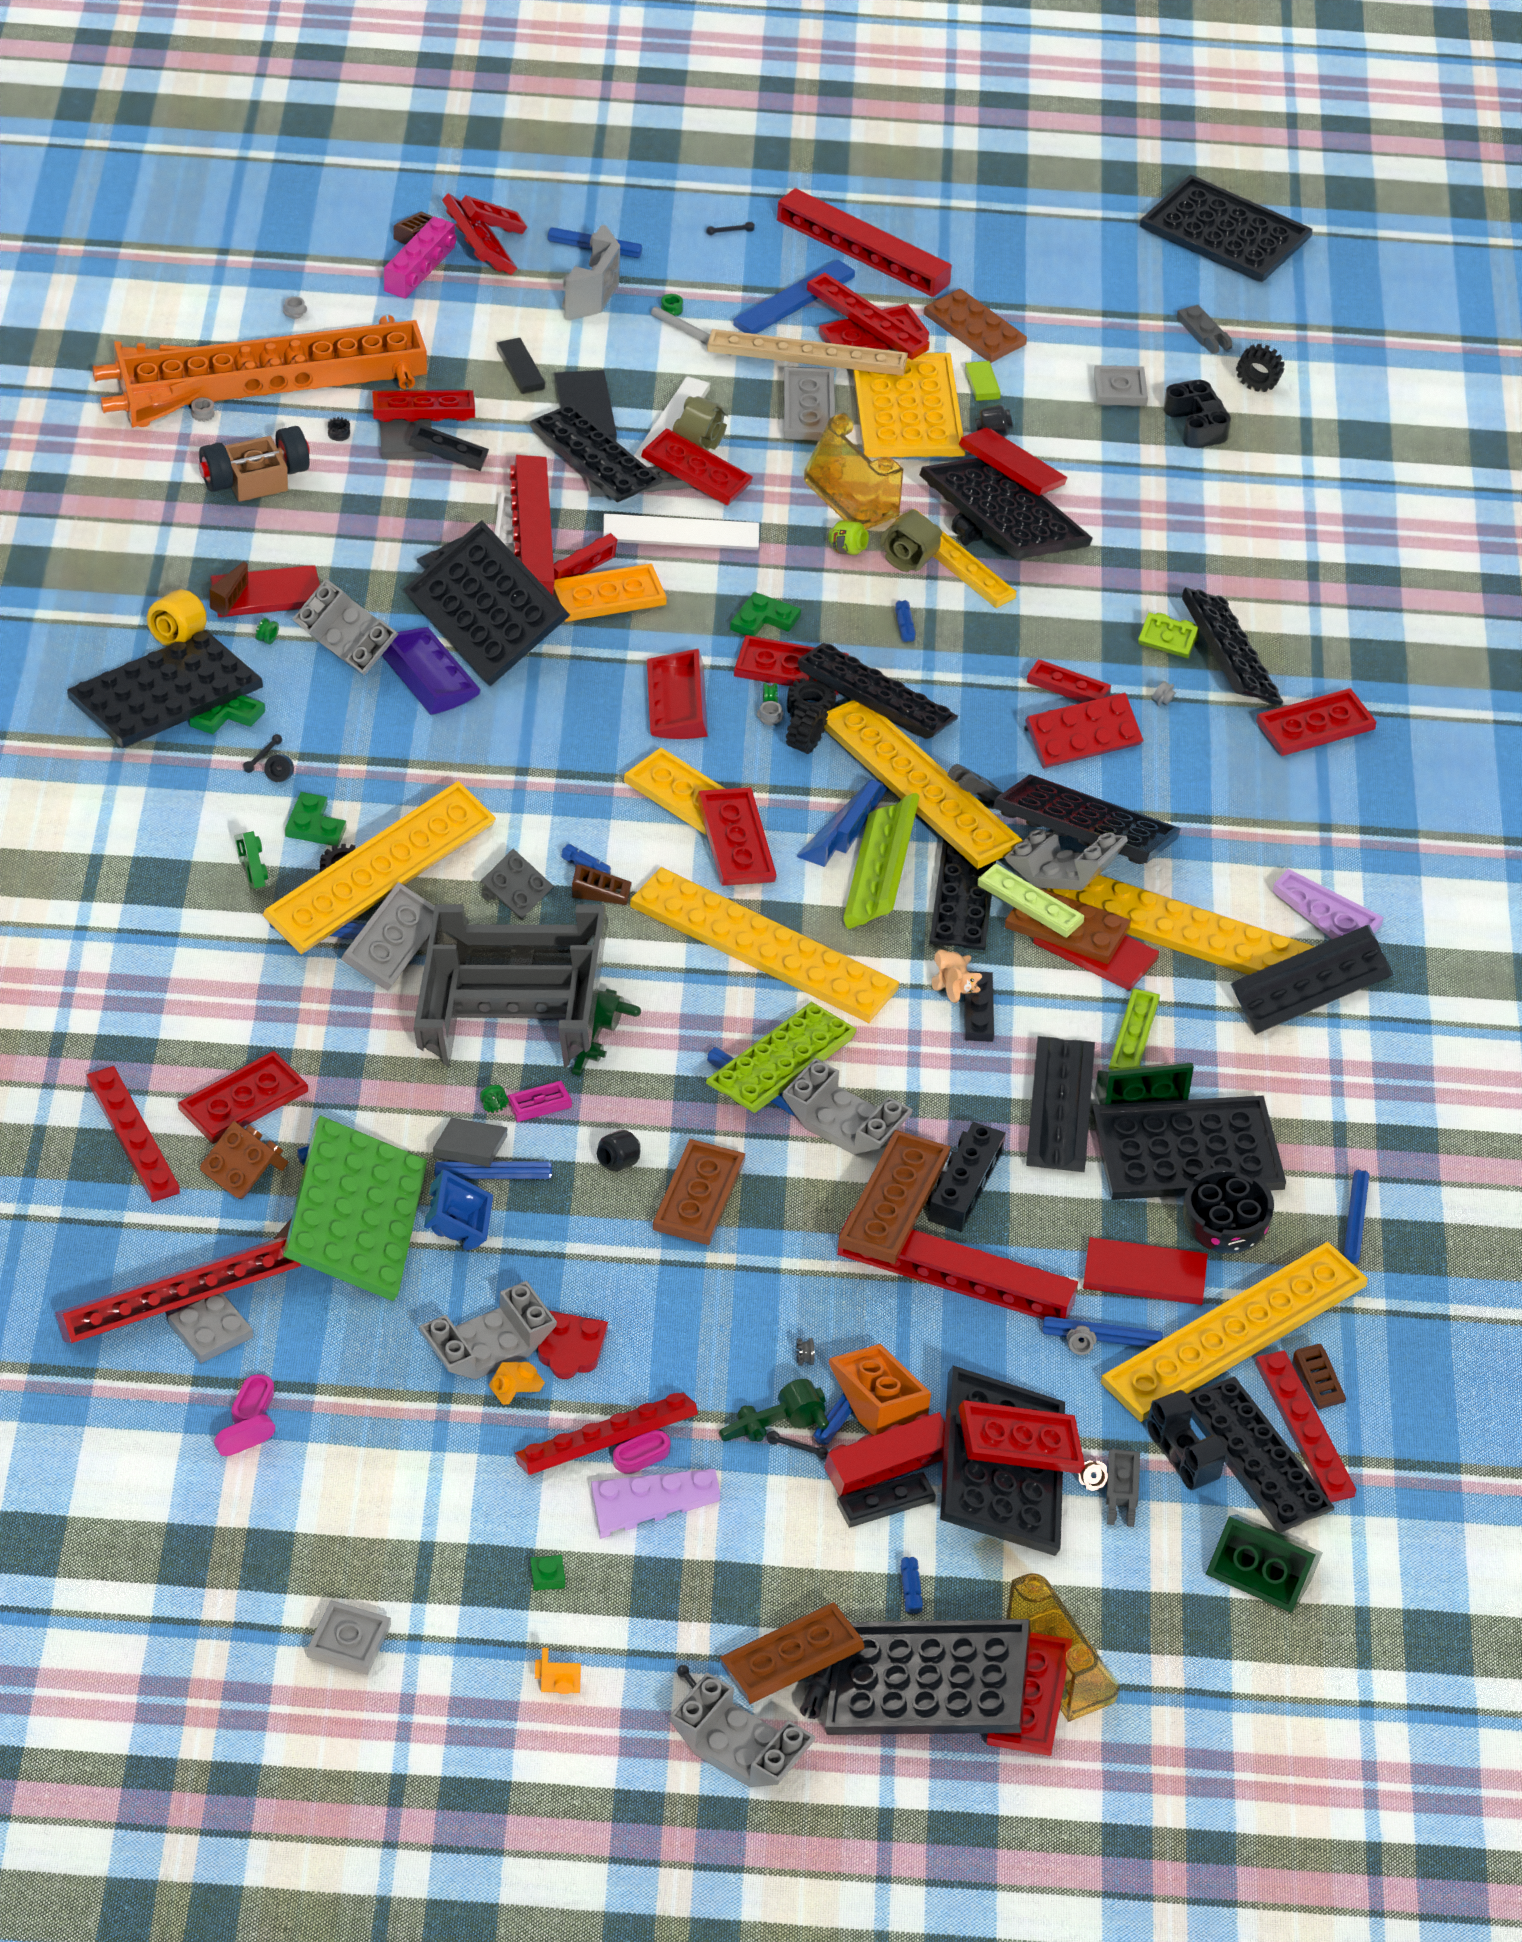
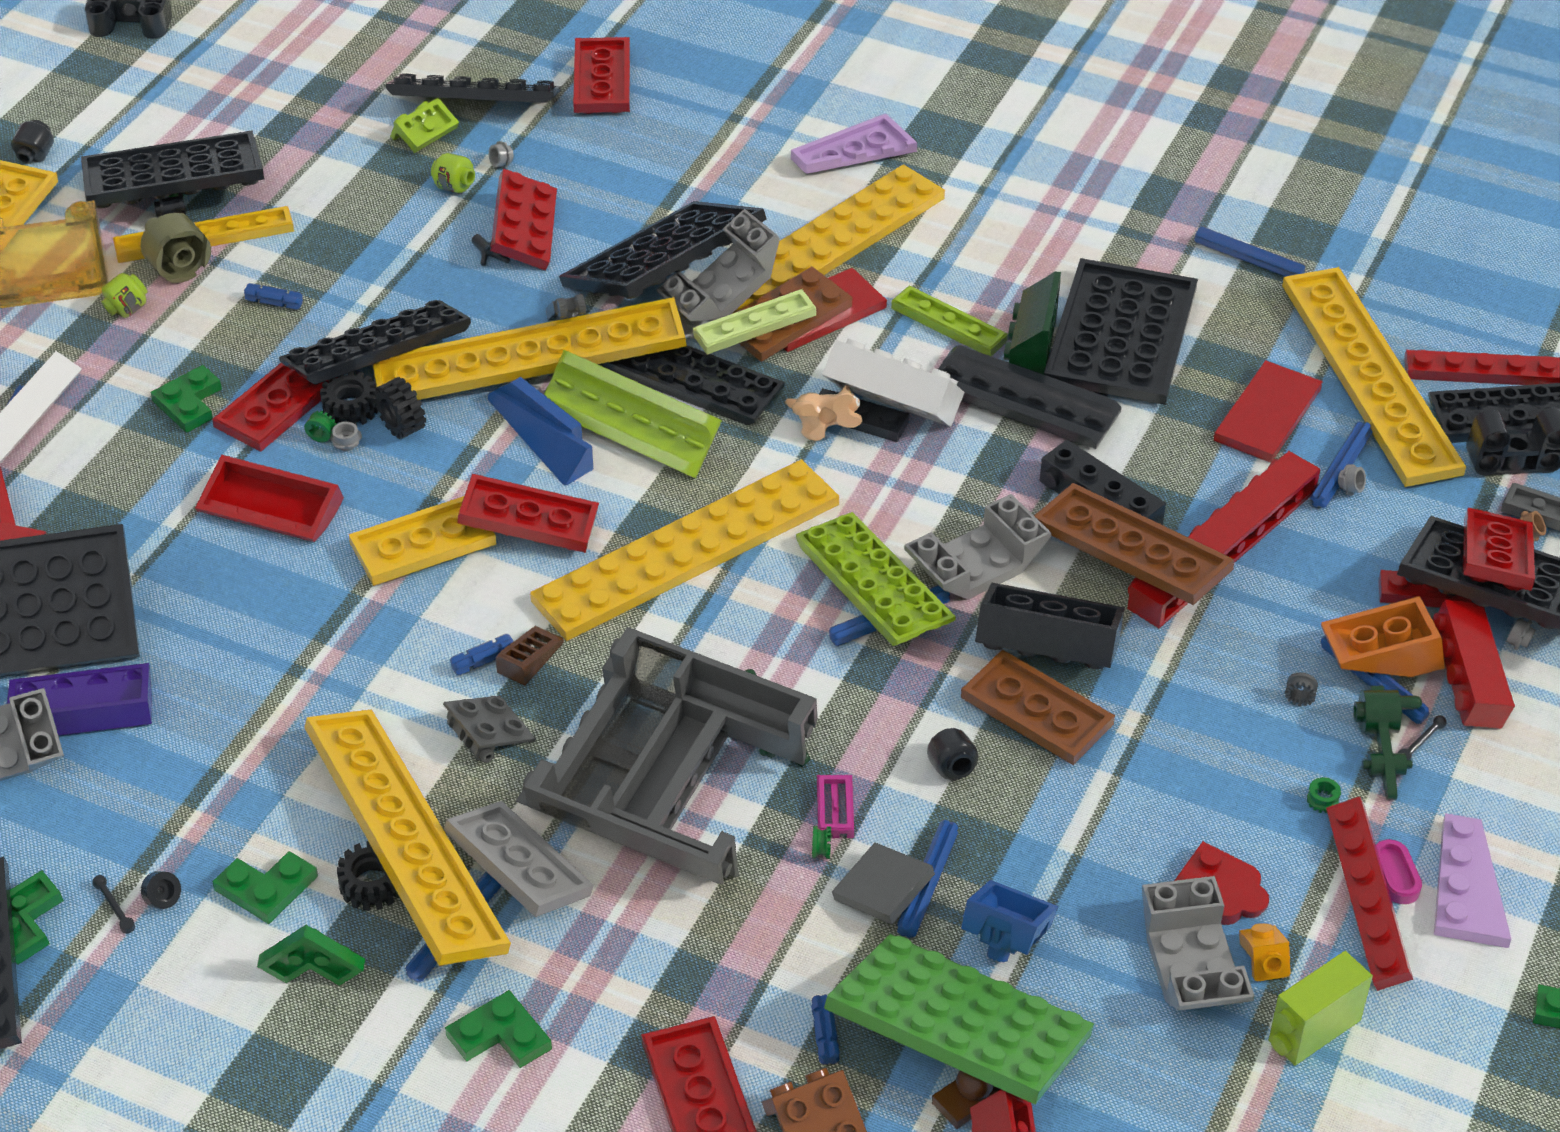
camera: 65 degrees left, 0 degrees up
(250, 978) = (502, 1022): none -> green plate
(459, 1411) = (1319, 1008): none -> lime brick
(610, 592) = (70, 494): light orange plate -> none
(699, 1382) = (1323, 784): none -> green bush
(777, 1169) = (1049, 625): none -> black brick
(886, 1499) = (1526, 715): black tile -> none
(1005, 1005) = (893, 382): none -> white brick
(1012, 461) = (103, 146): red tile -> none
(1067, 682) = (446, 211): red plate -> none
(1116, 670) = (453, 173): none -> lime head
(1120, 385) = (45, 46): light grey plate -> none
(1227, 1210) = (1240, 319): black cylinder -> none
(1311, 979) = (948, 181): black plate -> none
(1311, 1359) = (1441, 337): reddish brown slope -> none

